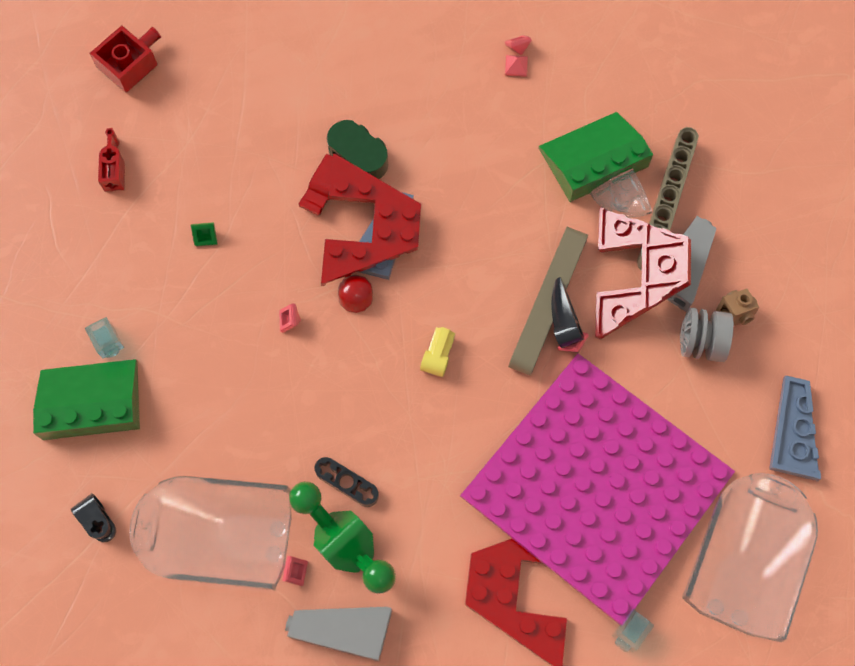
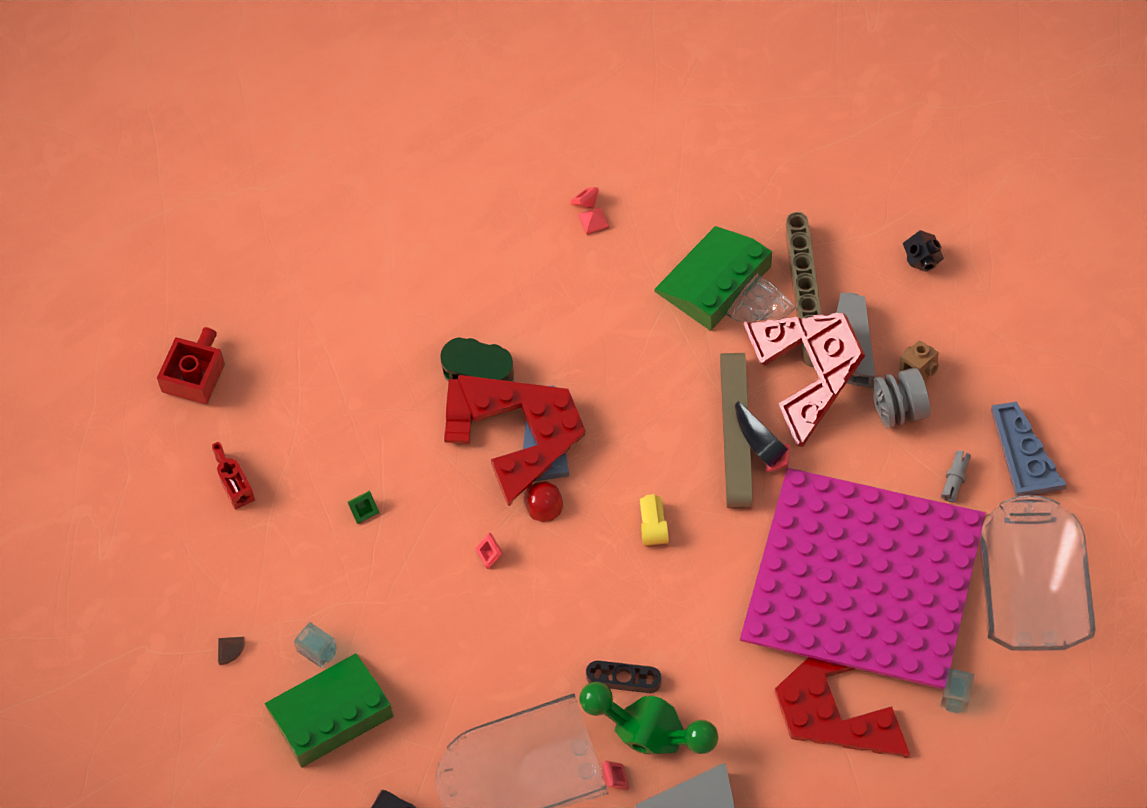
camera: 20 degrees left, 10 degrees down
(37, 310) = (229, 649): none -> clear smoke tile
(723, 426) = (955, 476): none -> light grey pin
(788, 208) = (923, 251): none -> black brick

